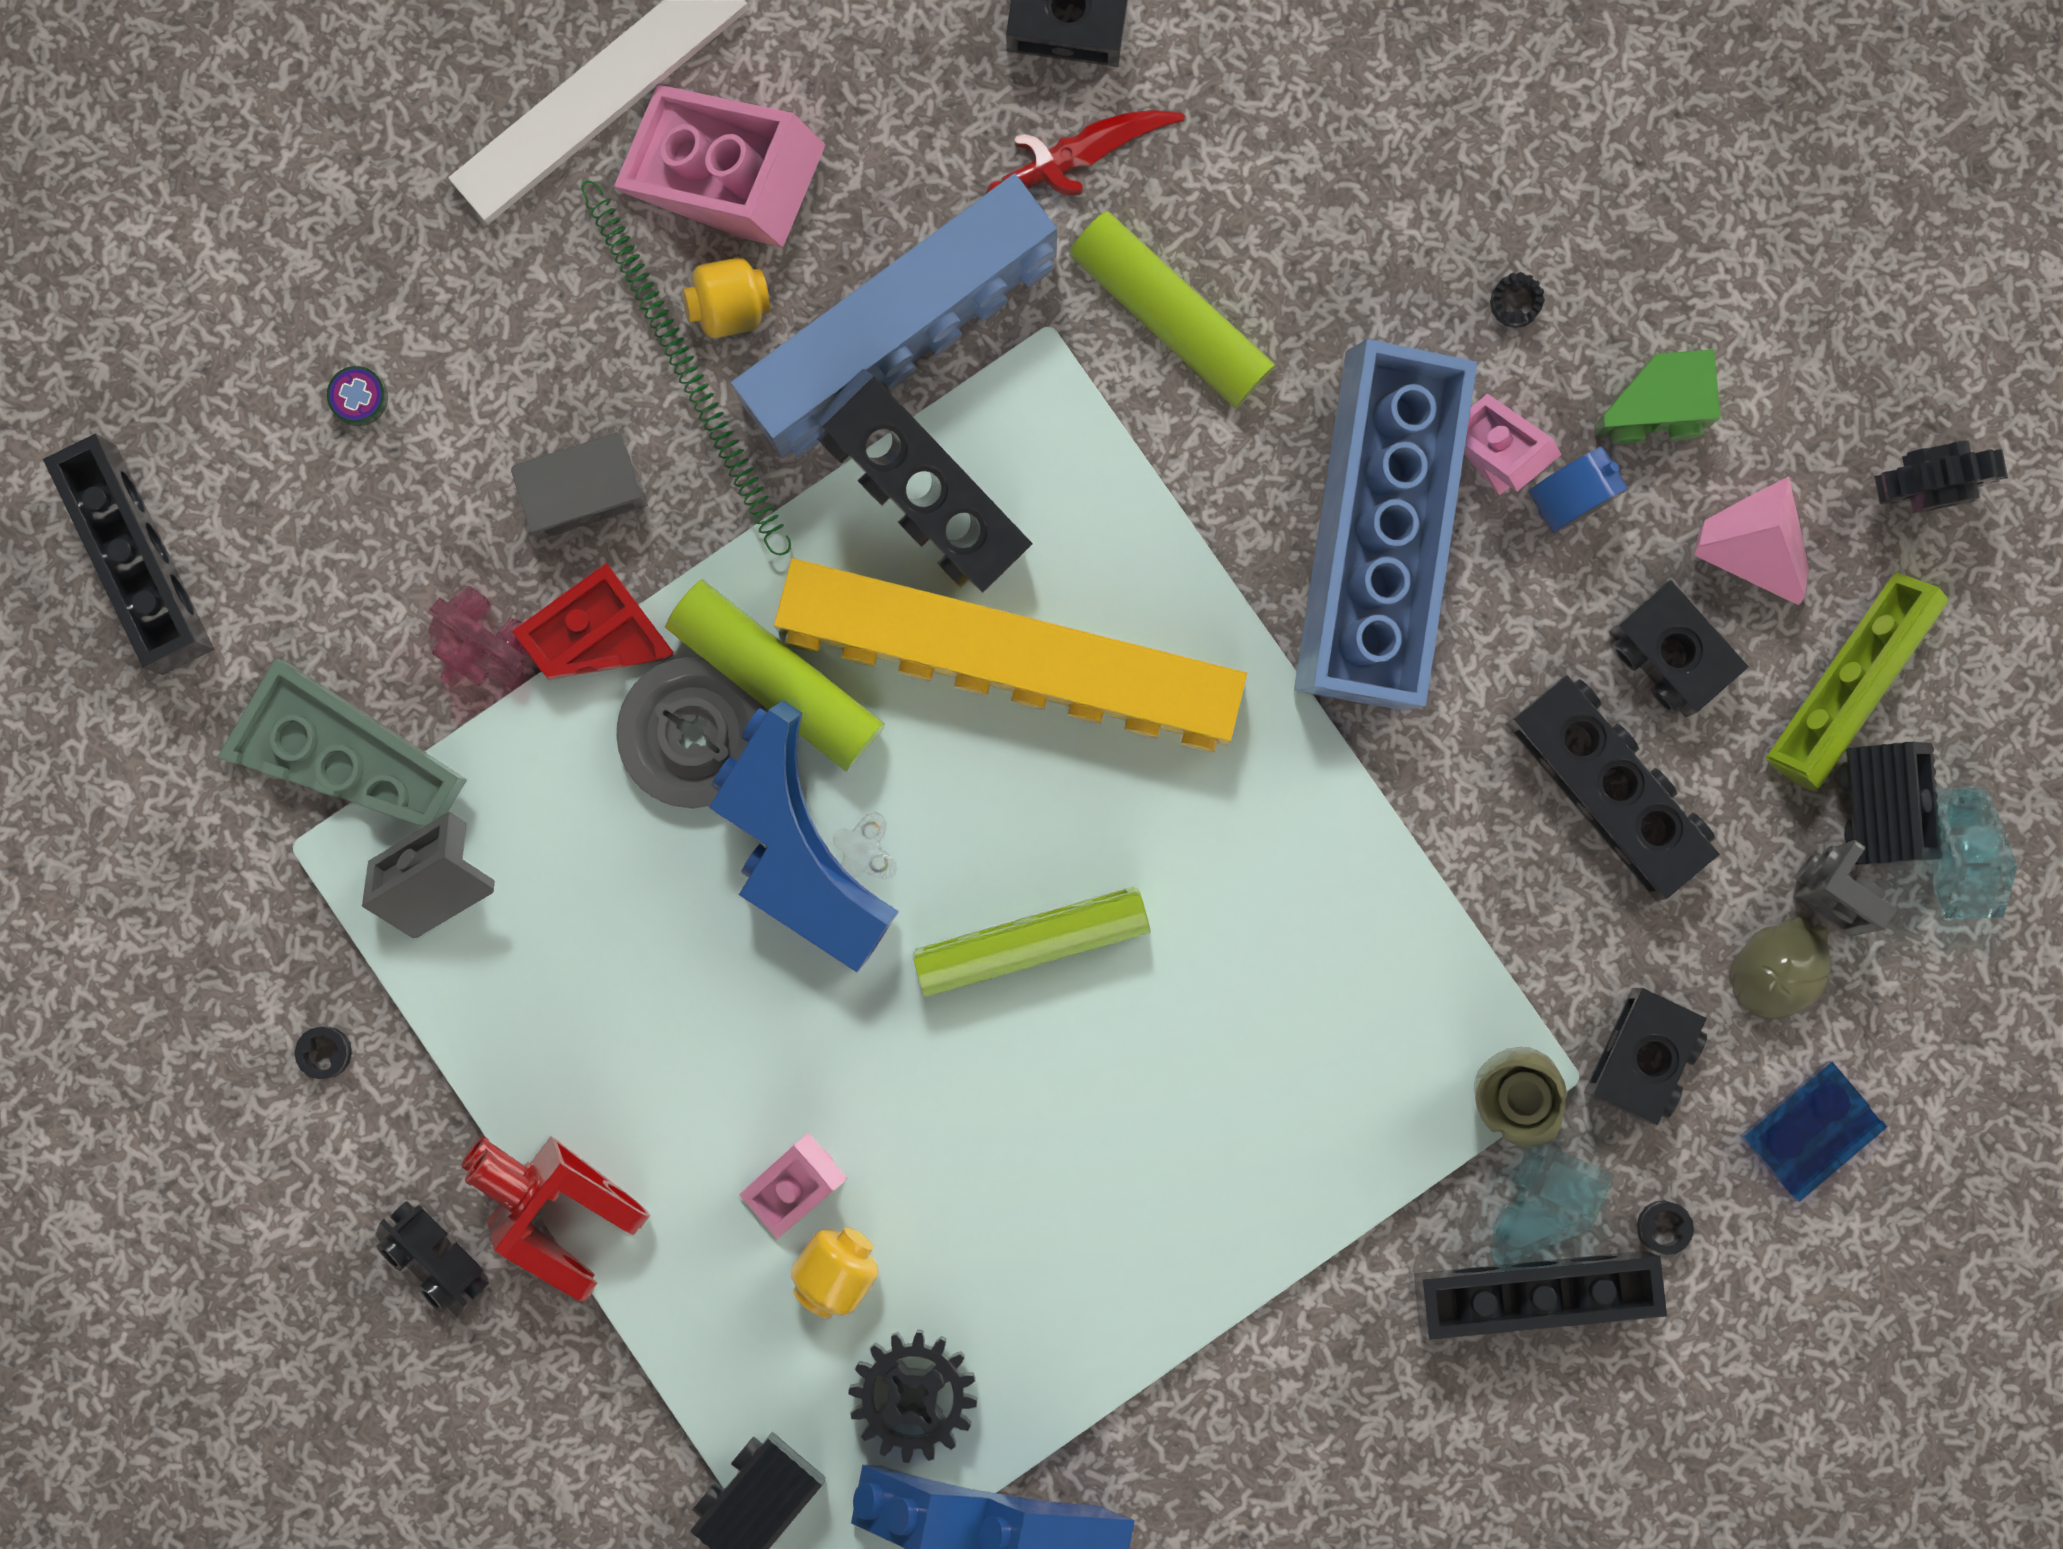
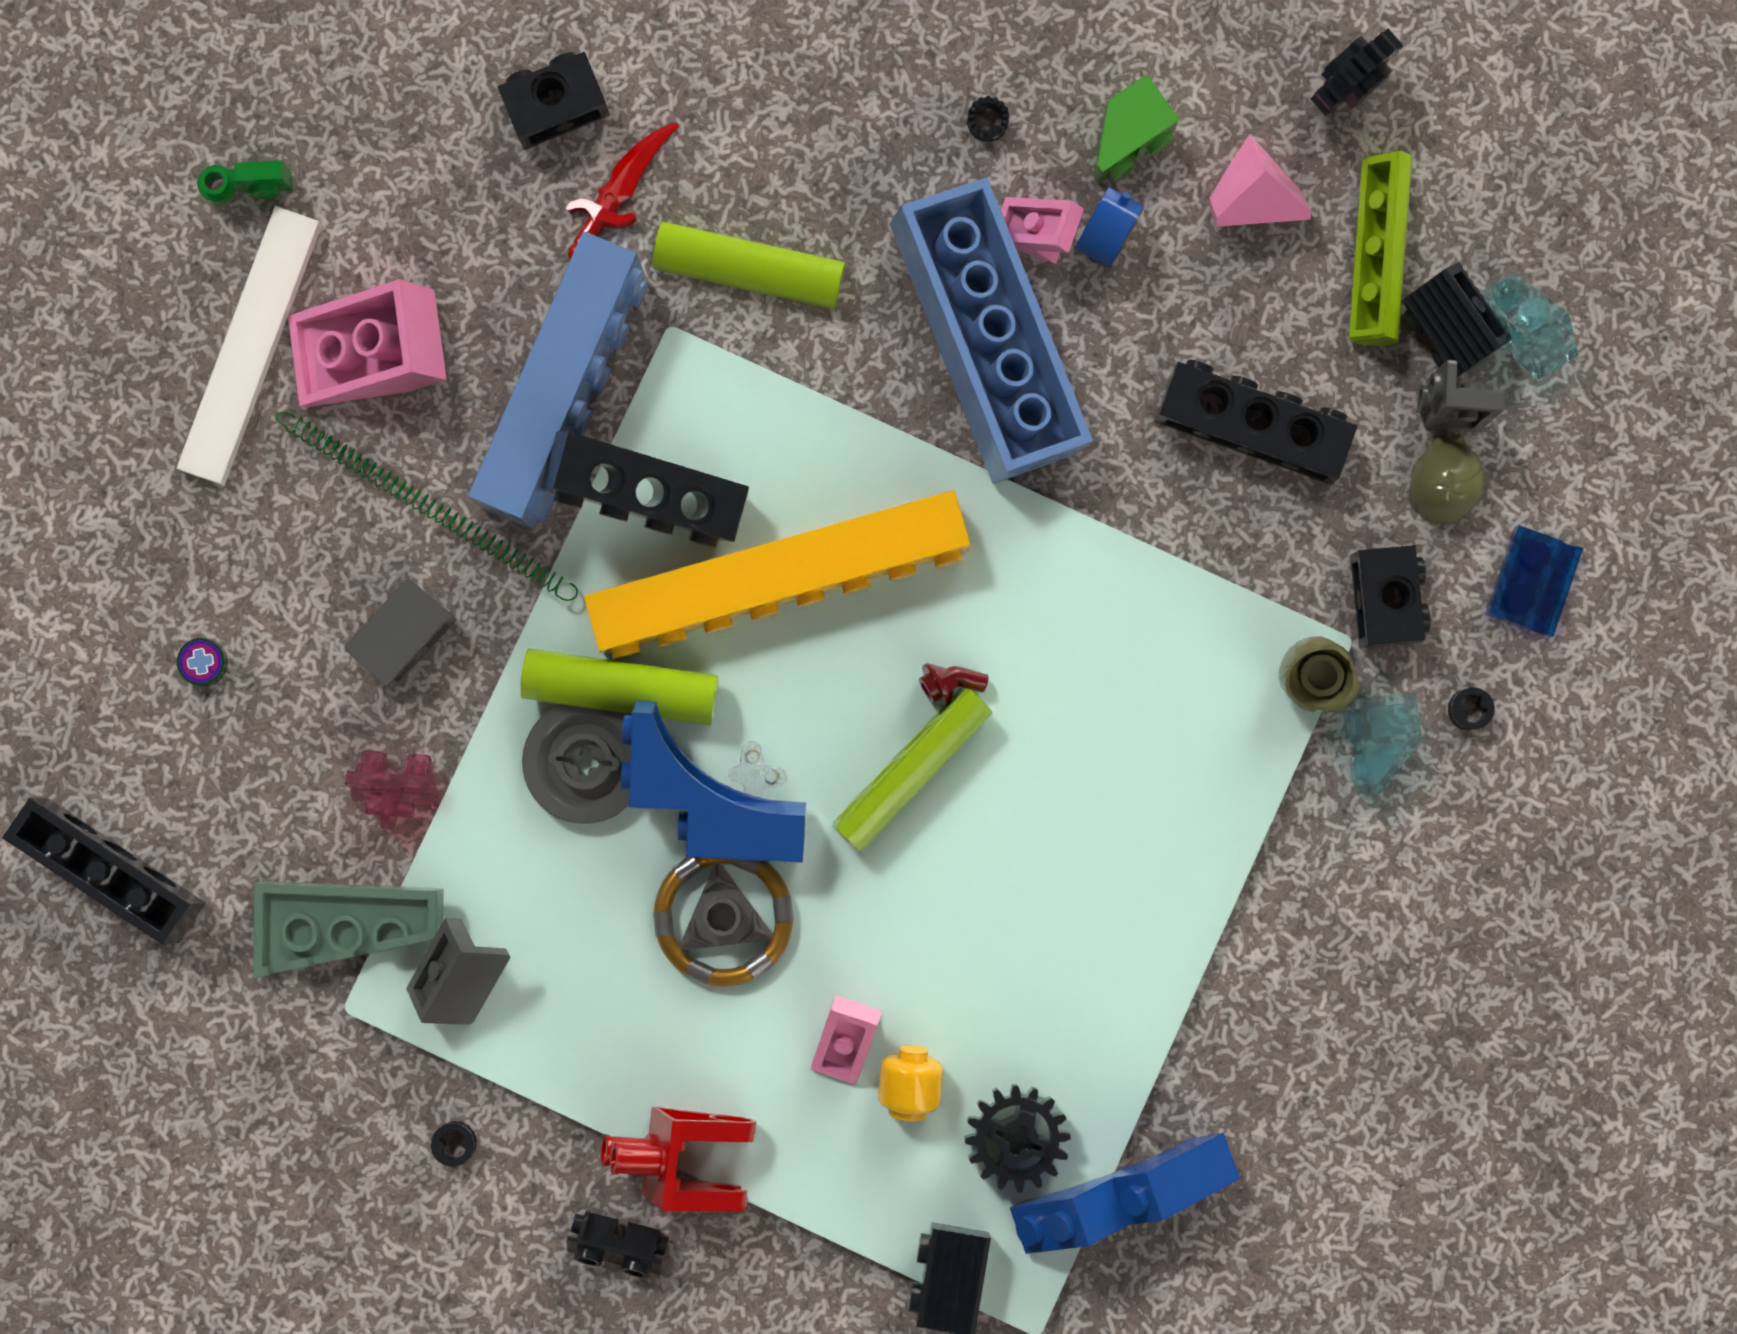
camera: 35 degrees left, 0 degrees up
(591, 630) = (470, 730): red wing -> none
(726, 297) = (427, 438): yellow head -> none
(739, 982) = (722, 919): none -> flat silver piece
(1114, 868) = (940, 682): none -> dark red plate
(1540, 1294) = (1413, 807): black brick -> none
(1709, 658) = (1270, 293): black brick -> none

